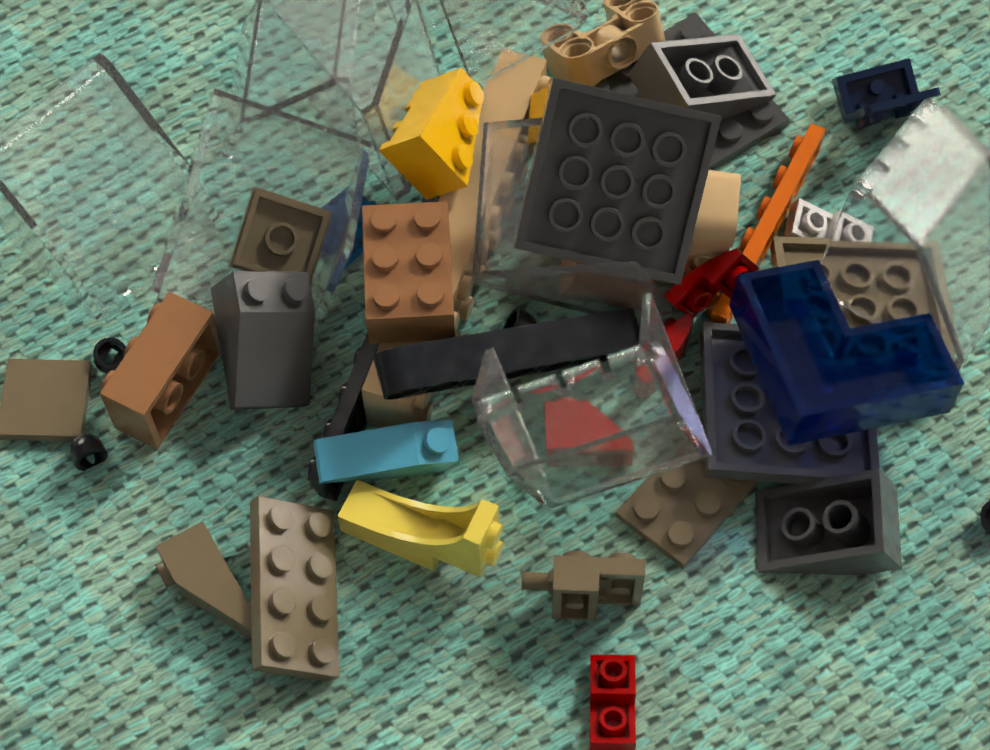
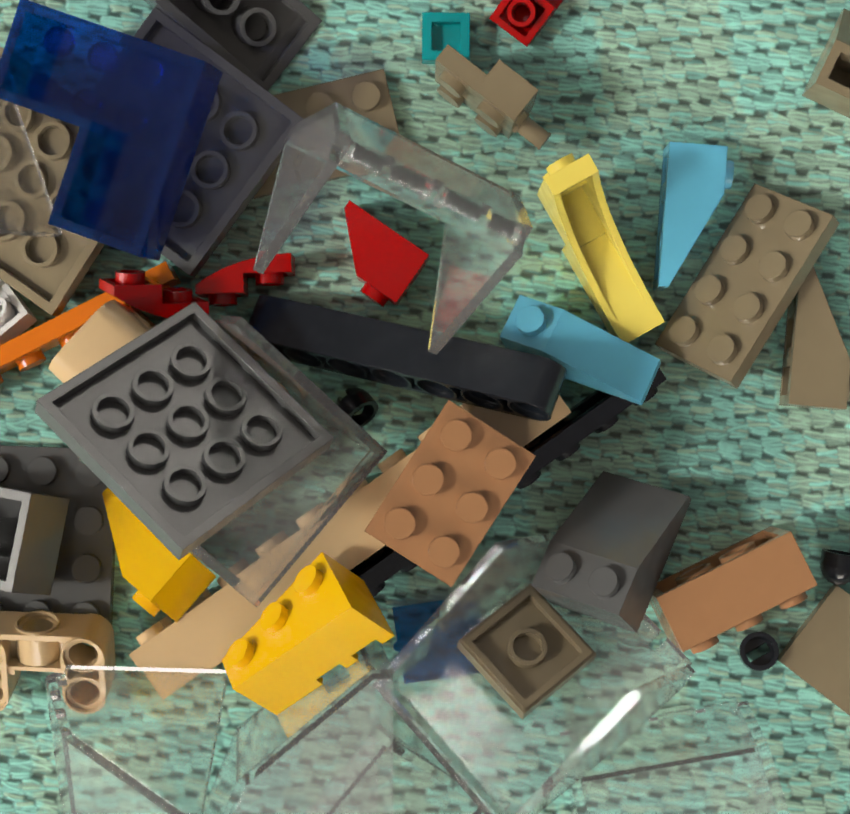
camera: 145 degrees left, 25 degrees up
(384, 630) = (689, 193): none -> medium azure slope
(655, 617) = (444, 29): none -> teal plate

